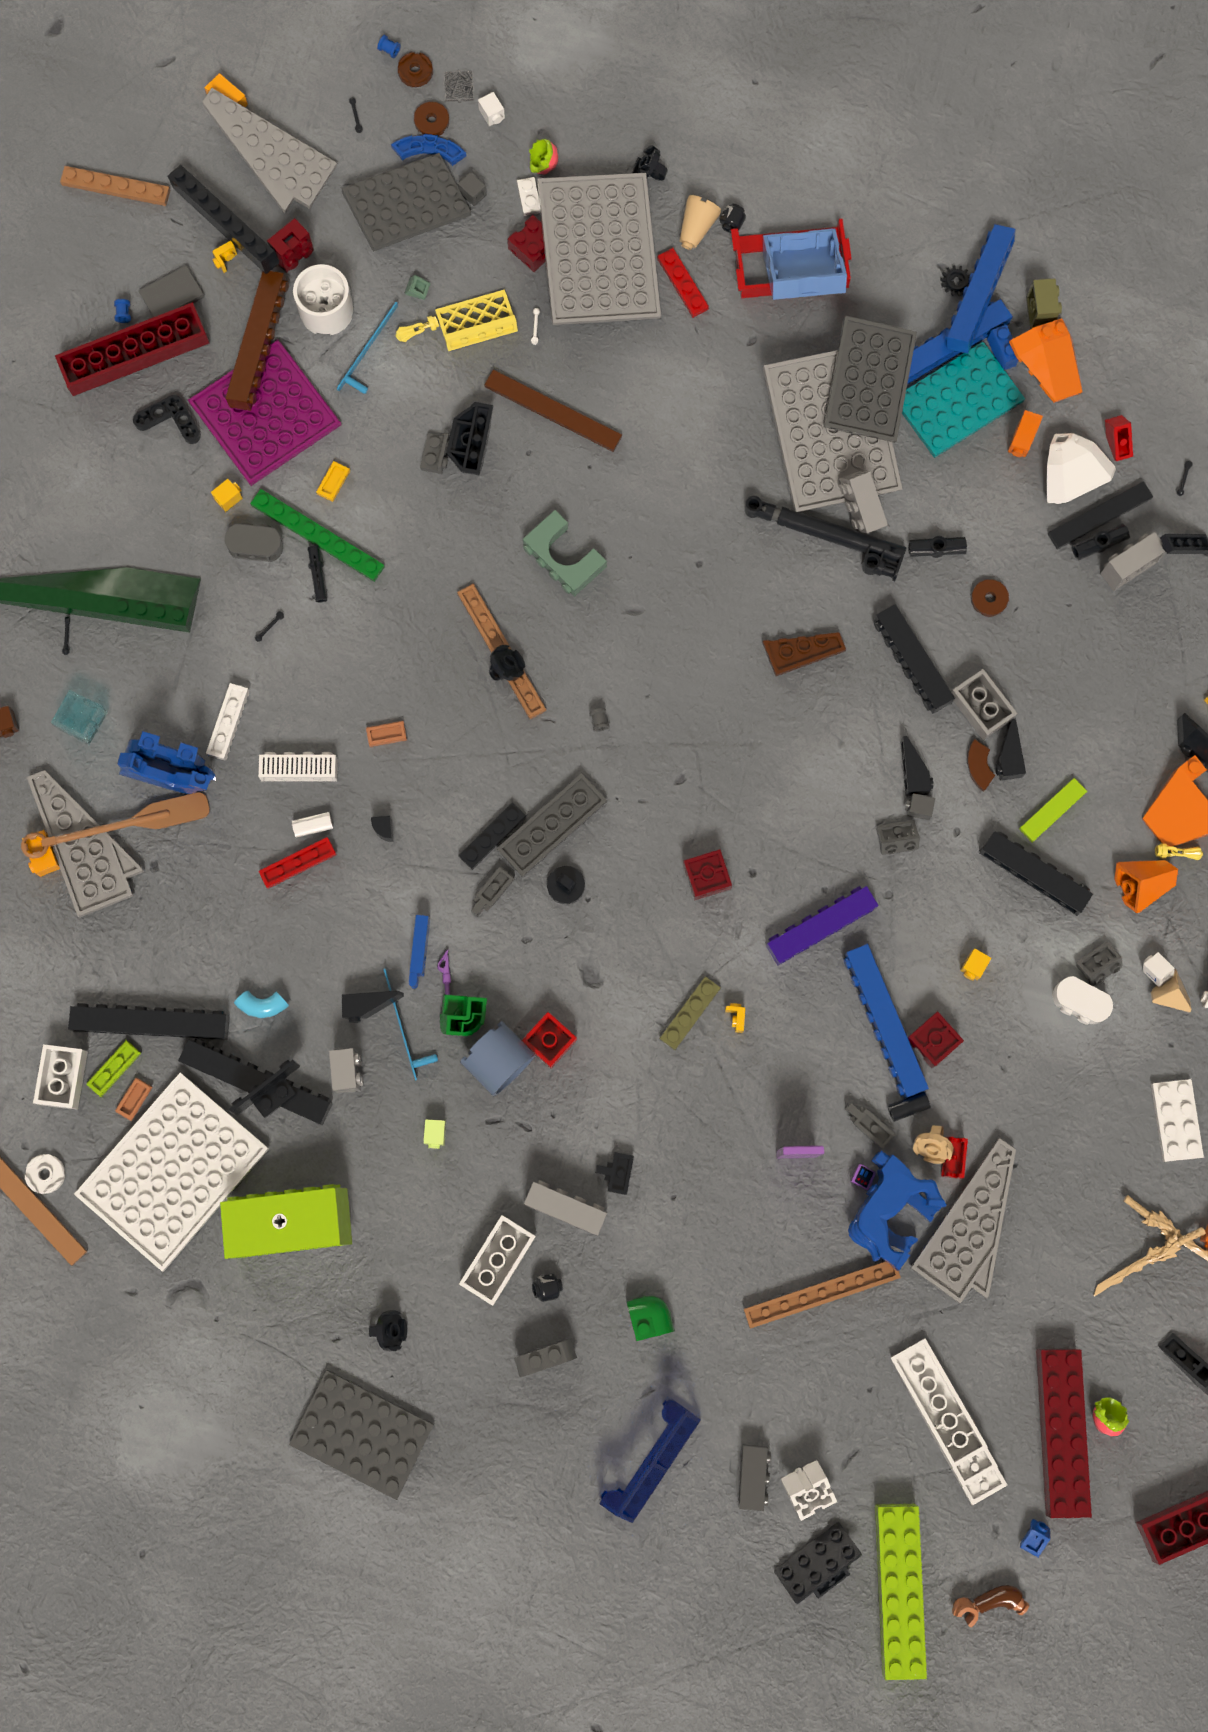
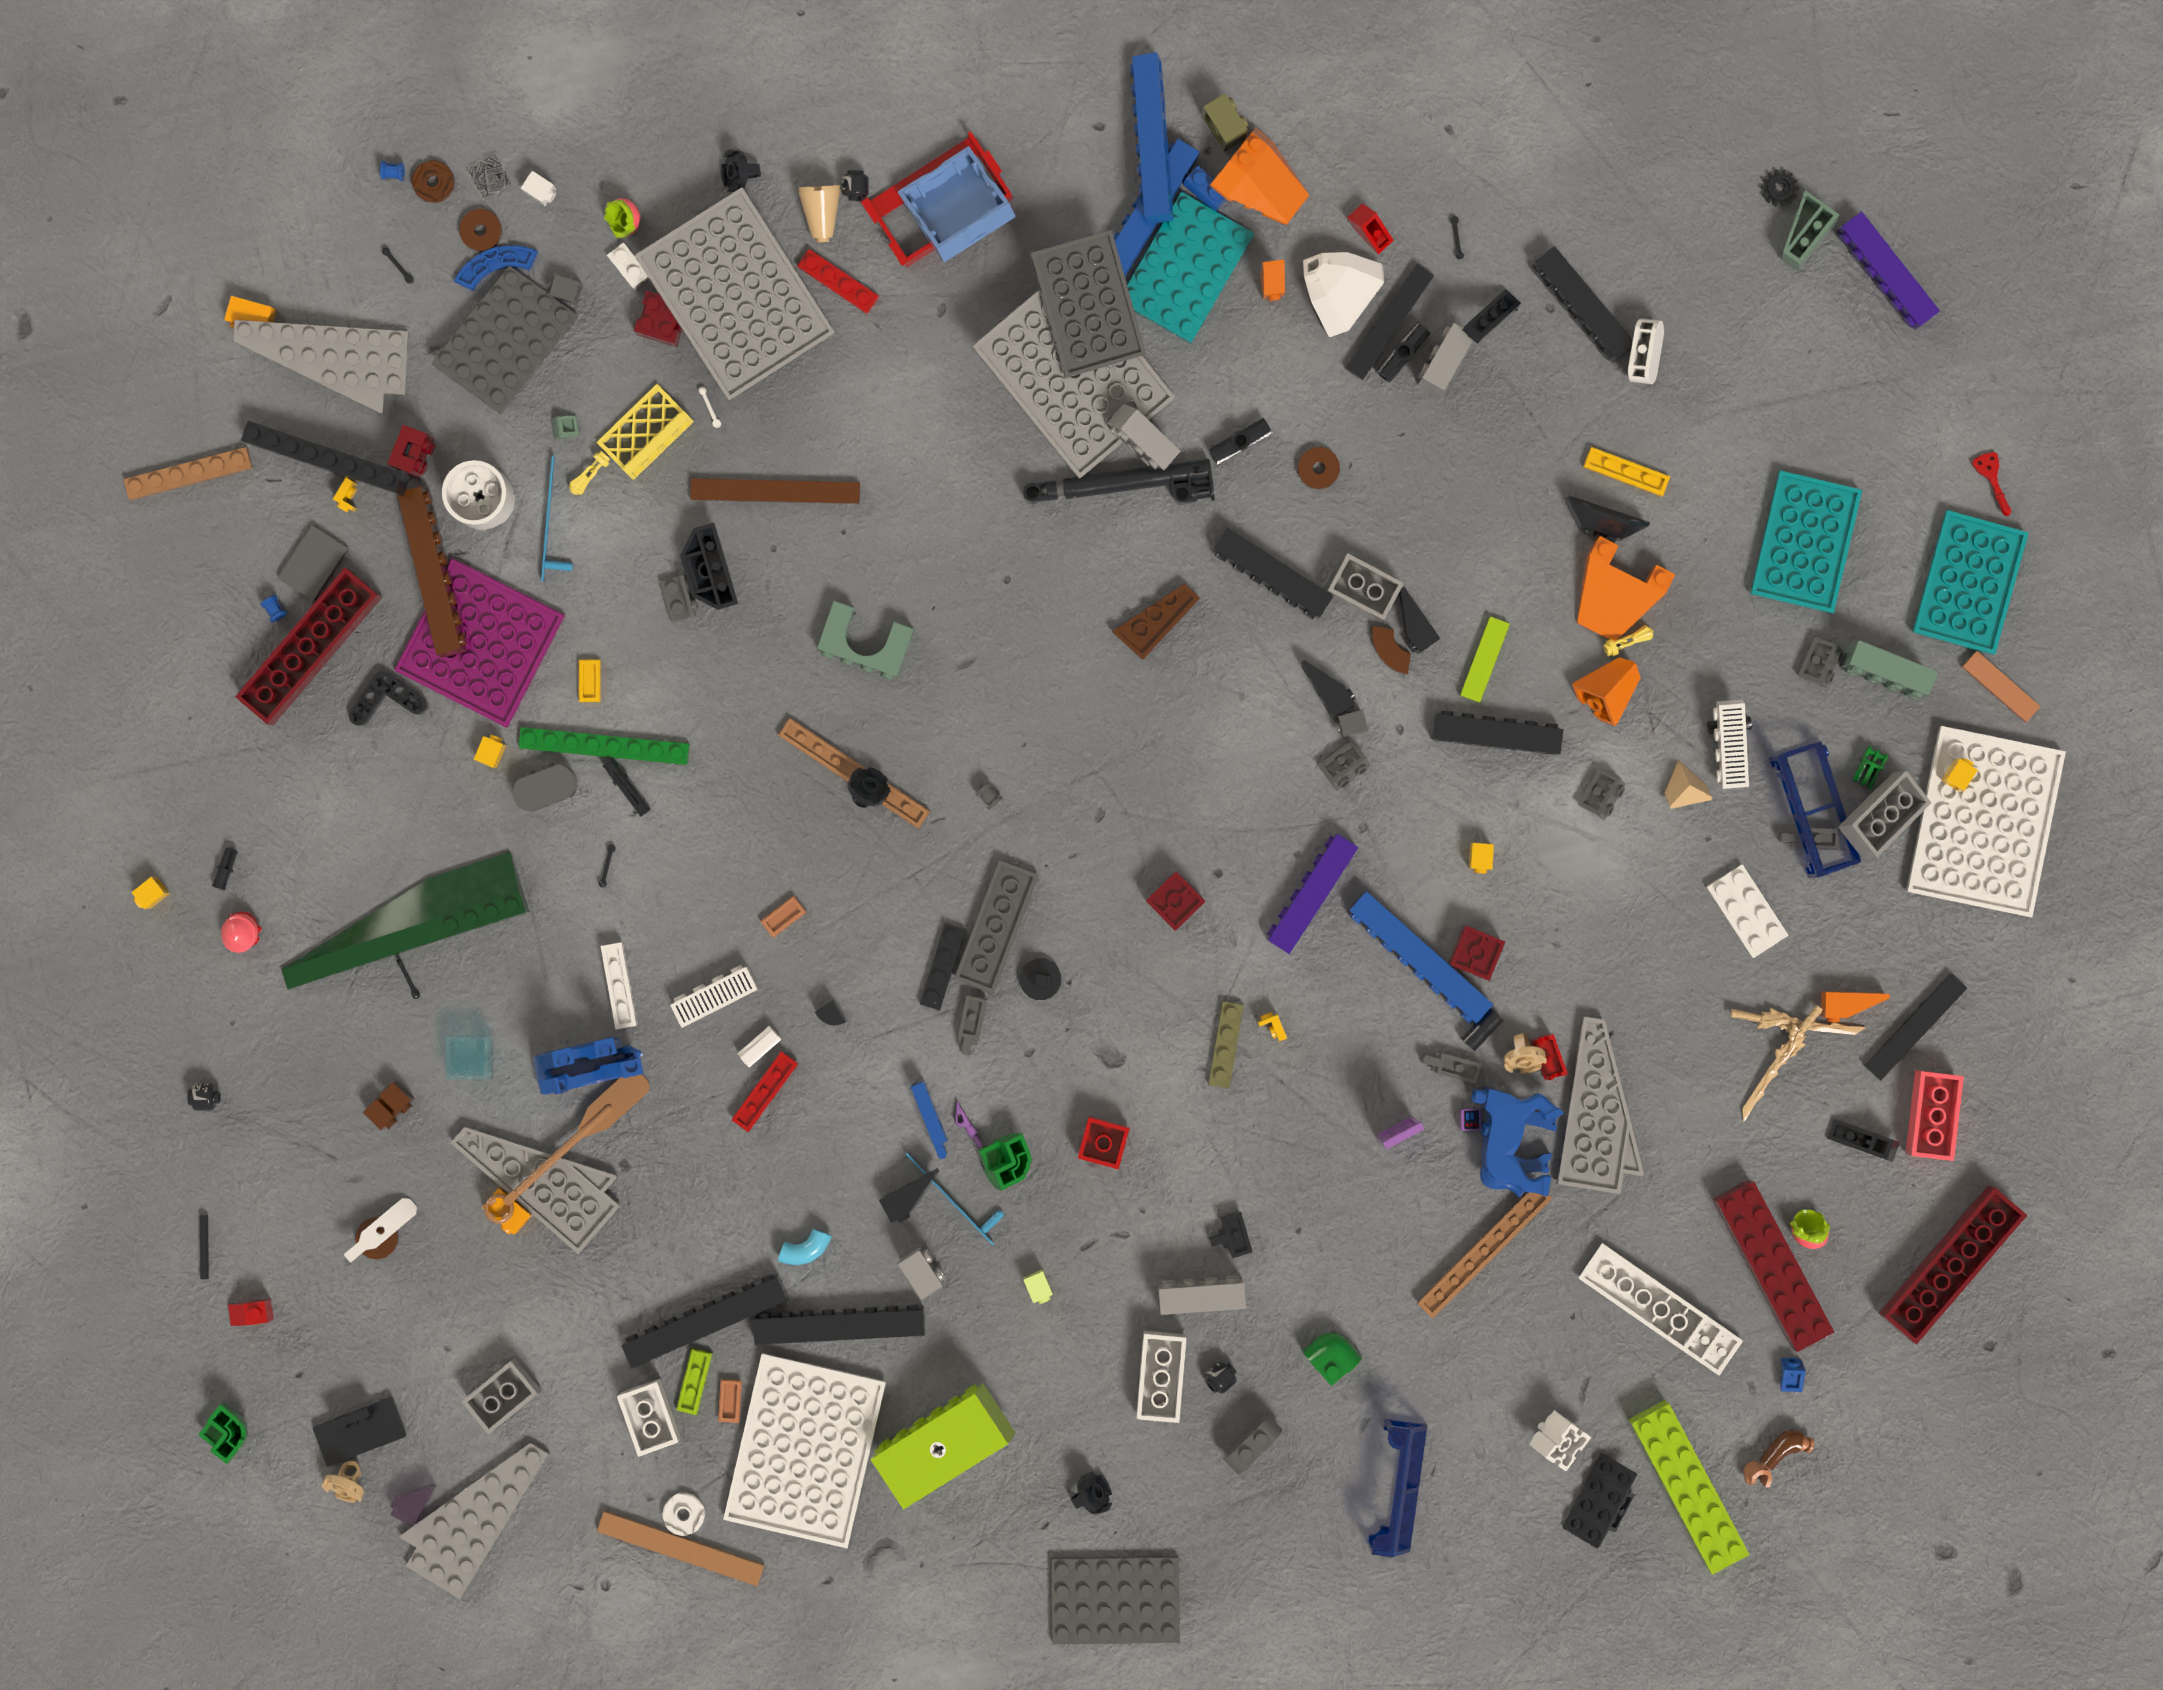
camera: 25 degrees left, 10 degrees up
(270, 1094) = (865, 1333): black bracket -> none
(498, 1058) = (1064, 1187): sand blue brick -> none
(754, 1477) = (1503, 1453): dark grey brick -> none
(962, 276) = (1113, 132): black gear -> none
(1082, 1000) = (1601, 840): white brick -> none
(1158, 969) = (1661, 771): white brick -> none

